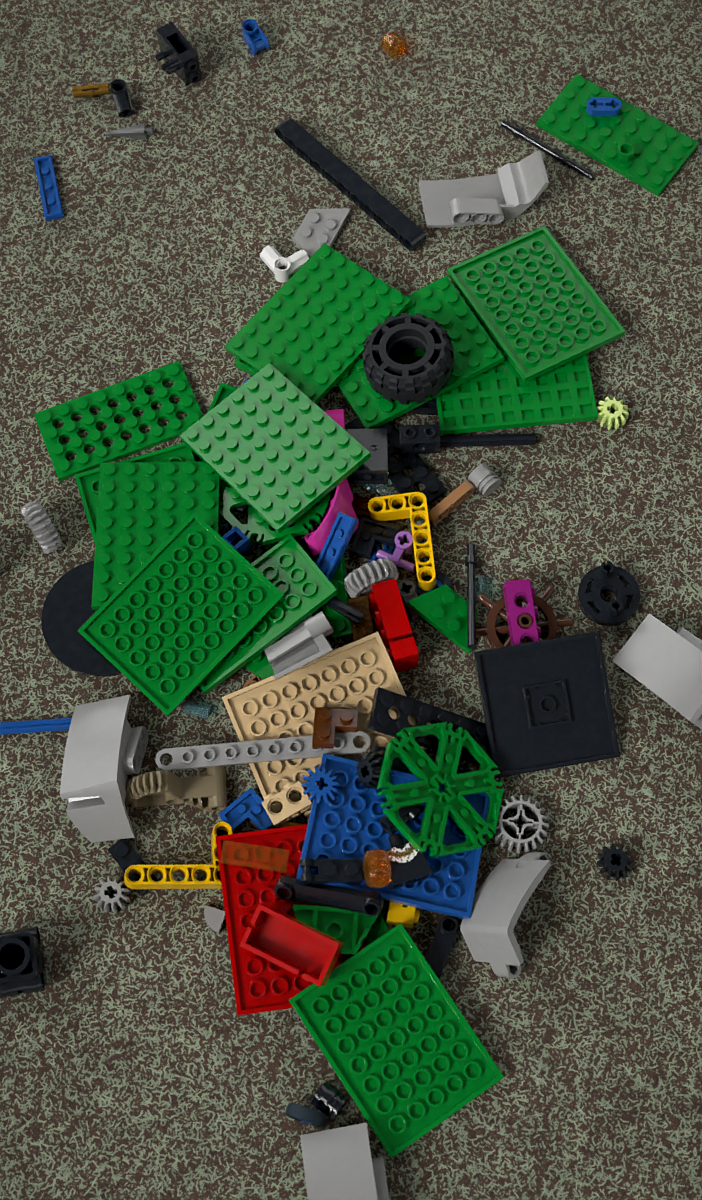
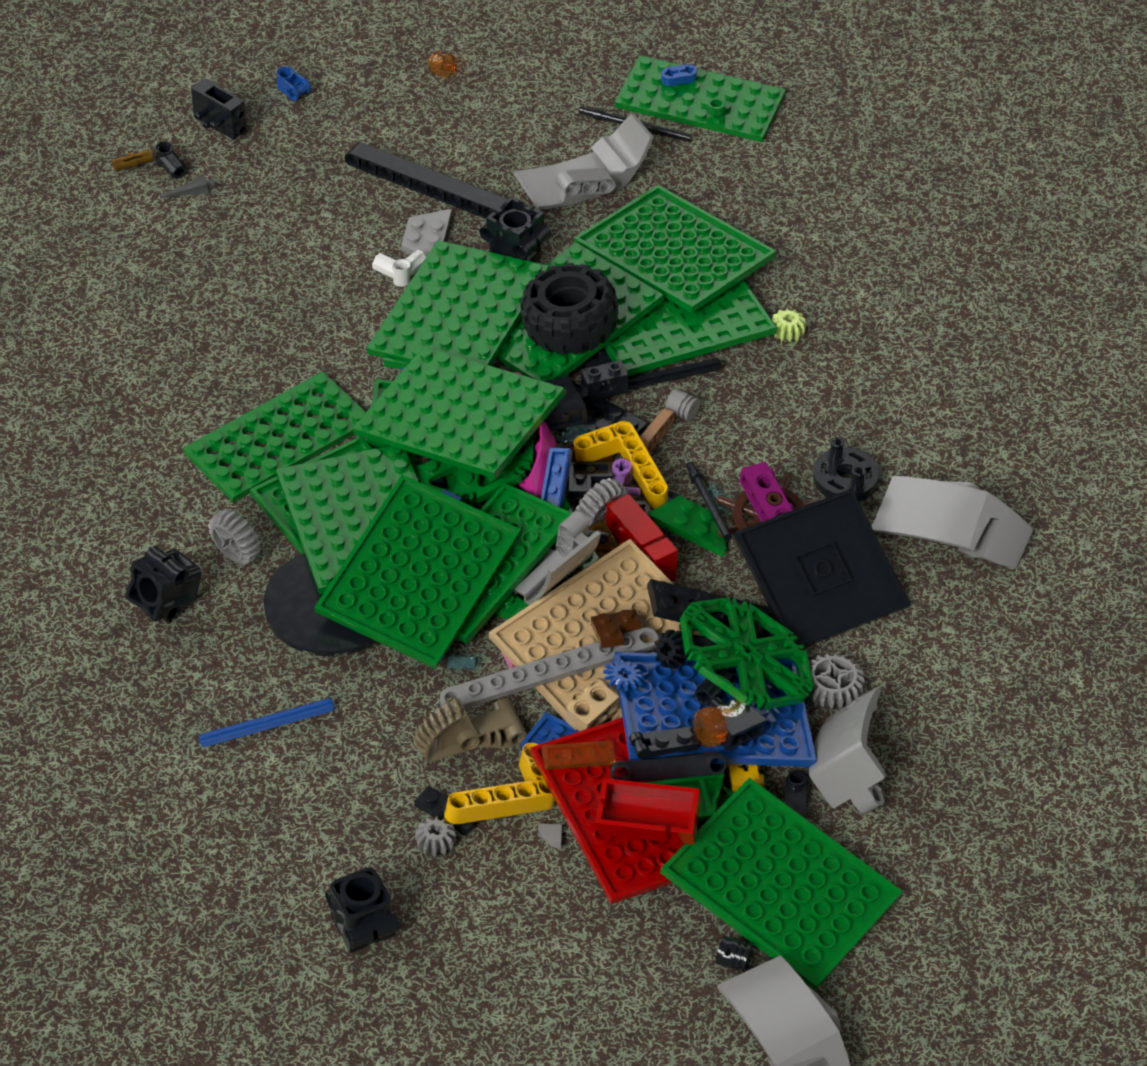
camera: 20 degrees left, 20 degrees down
(48, 188) = (119, 253): blue tile -> none
(96, 767) = (383, 731): light grey beam -> none
(305, 1115) = (714, 968): black bush -> none
(393, 254) = (515, 230): none -> black piece
(623, 865) = (940, 690): black gear -> none

